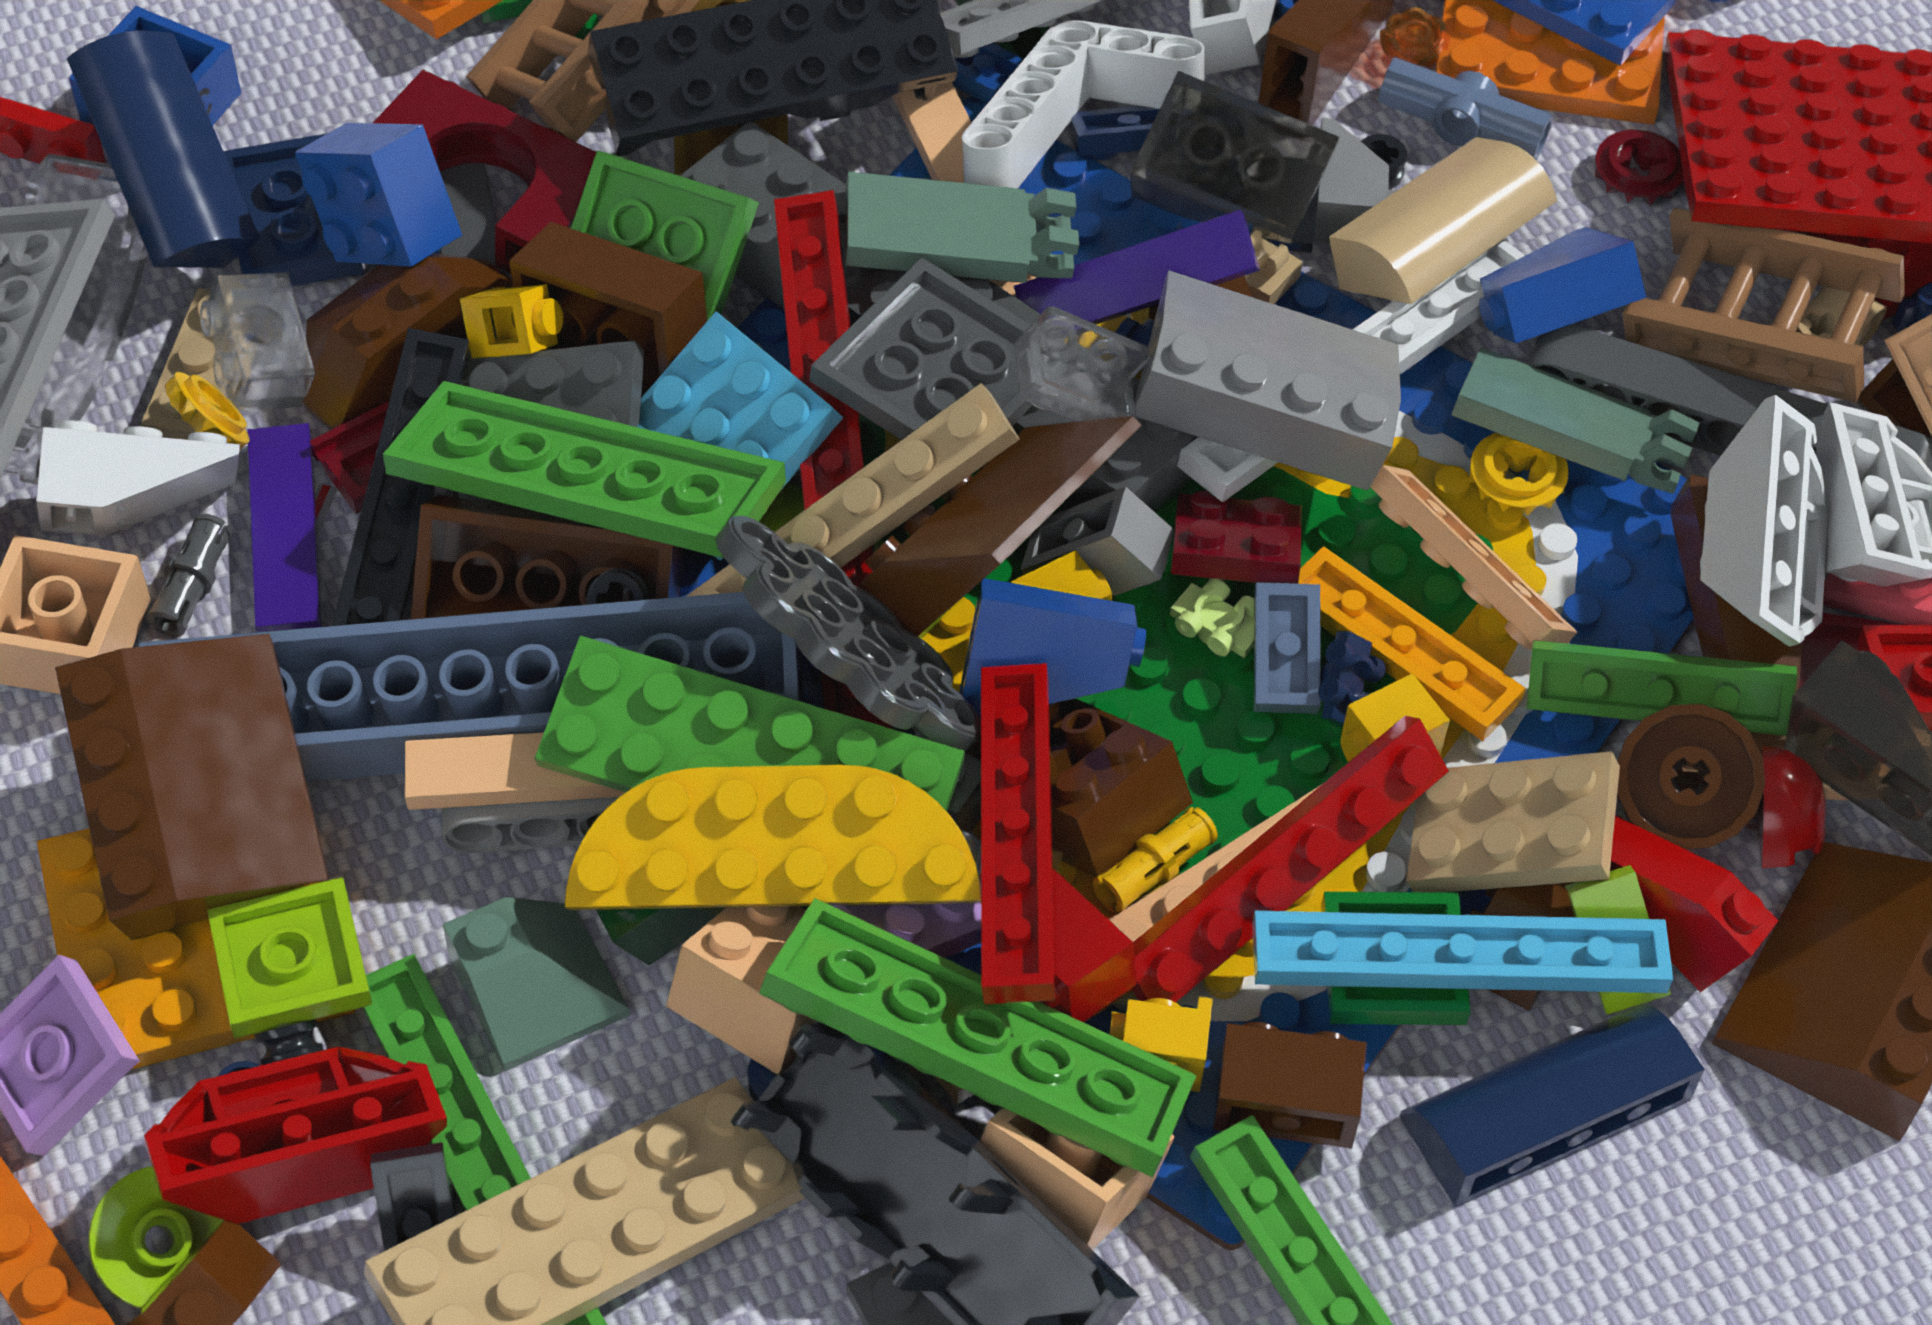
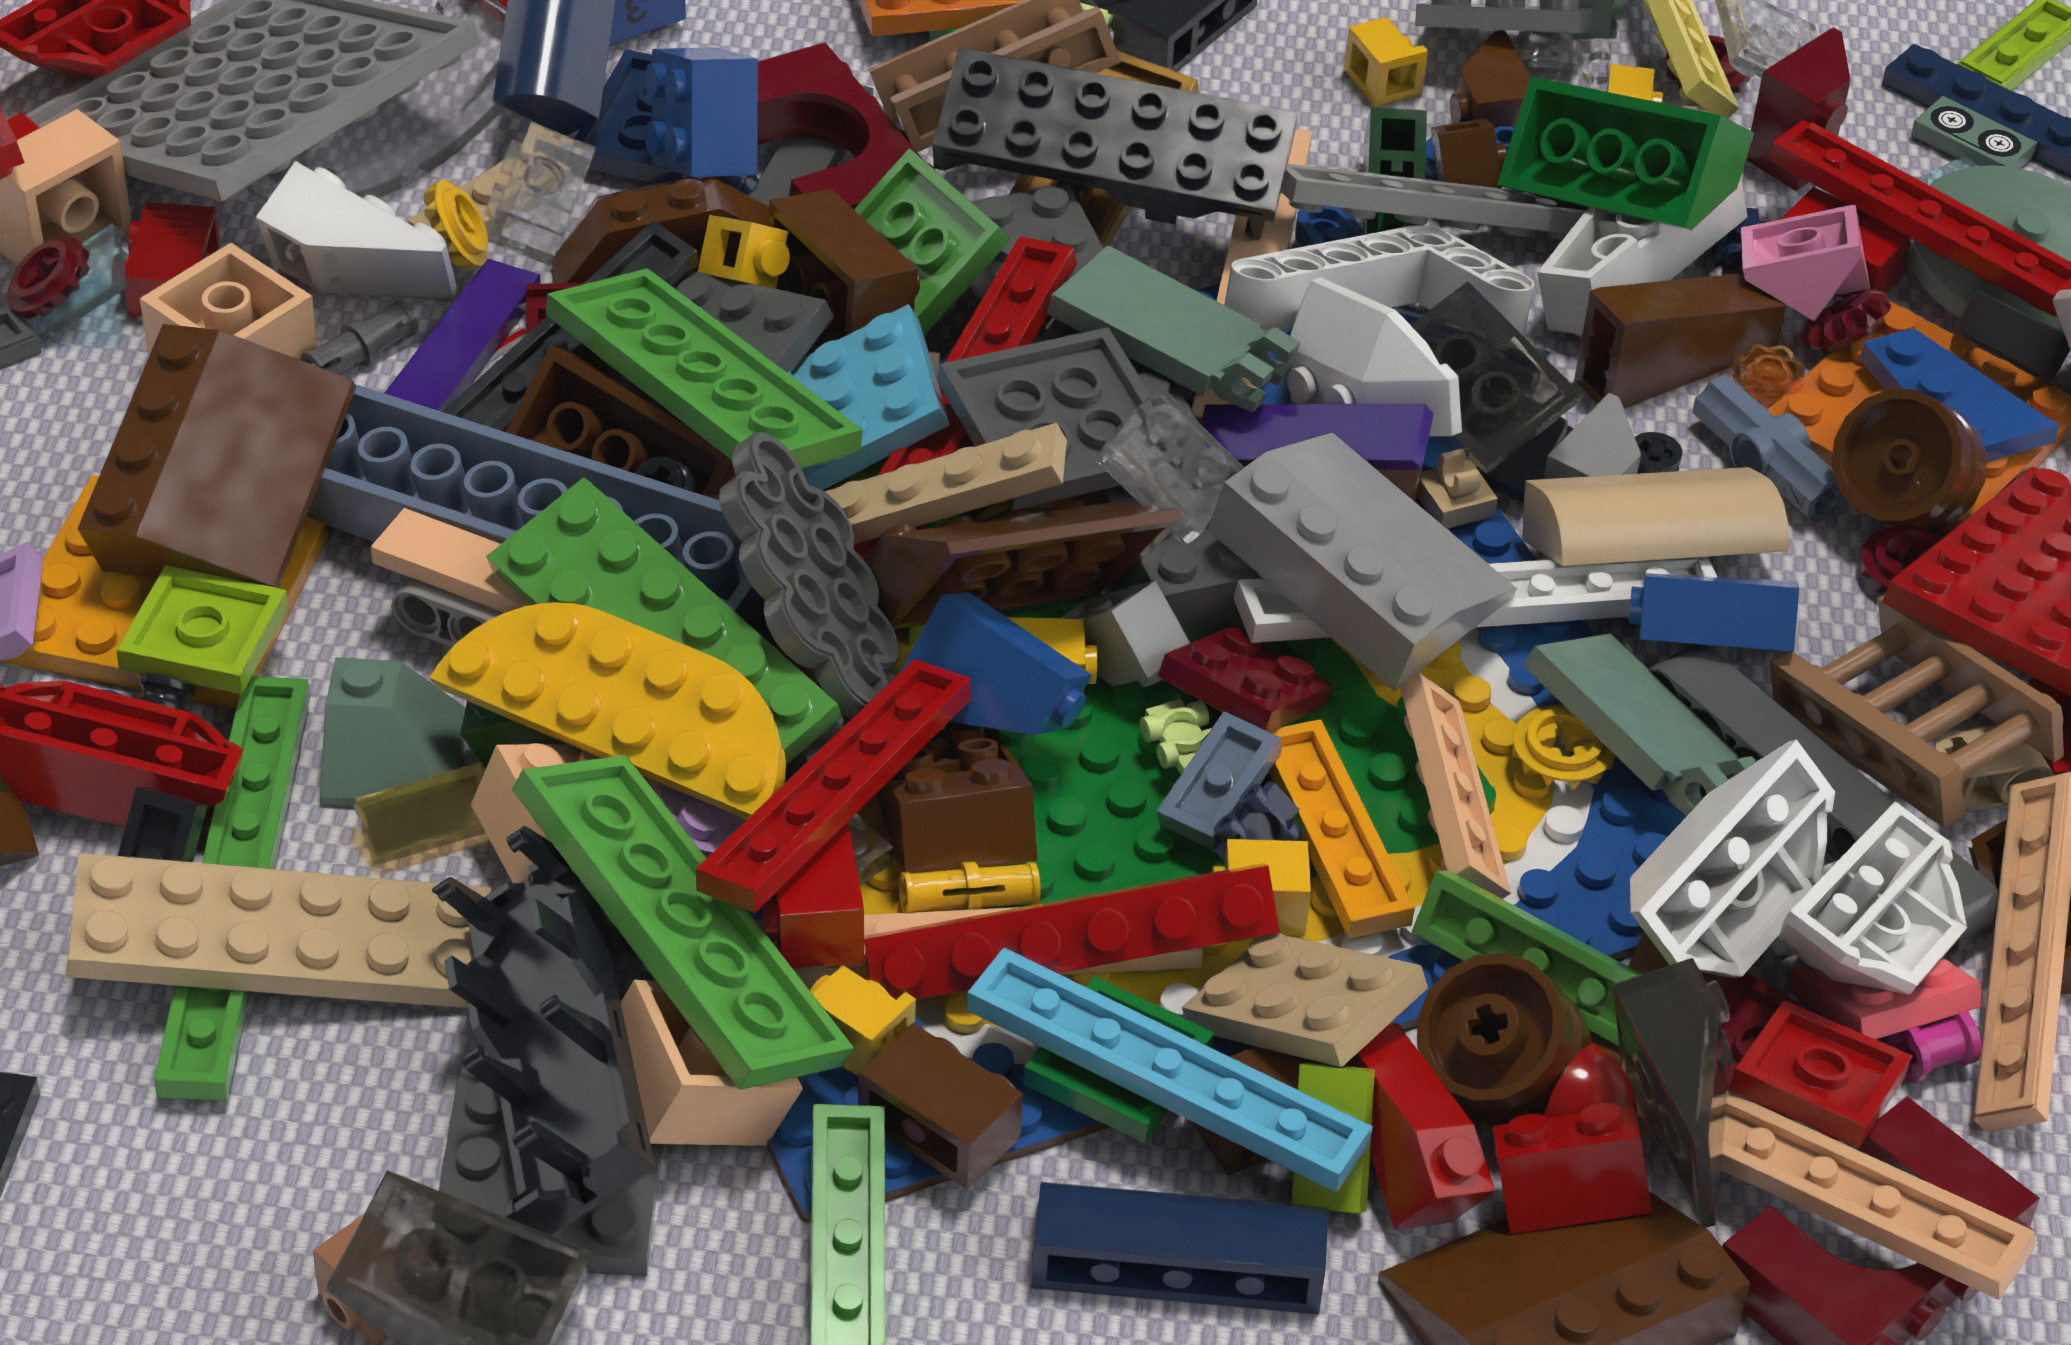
camera: 30 degrees right, 10 degrees down
(618, 1033) = (420, 814): none -> clear yellow tile
(1137, 183) = (1366, 355): none -> white wedge
(1617, 106) = (1874, 455): none -> reddish brown wheel
(1818, 865) = (1572, 1168): none -> red brick

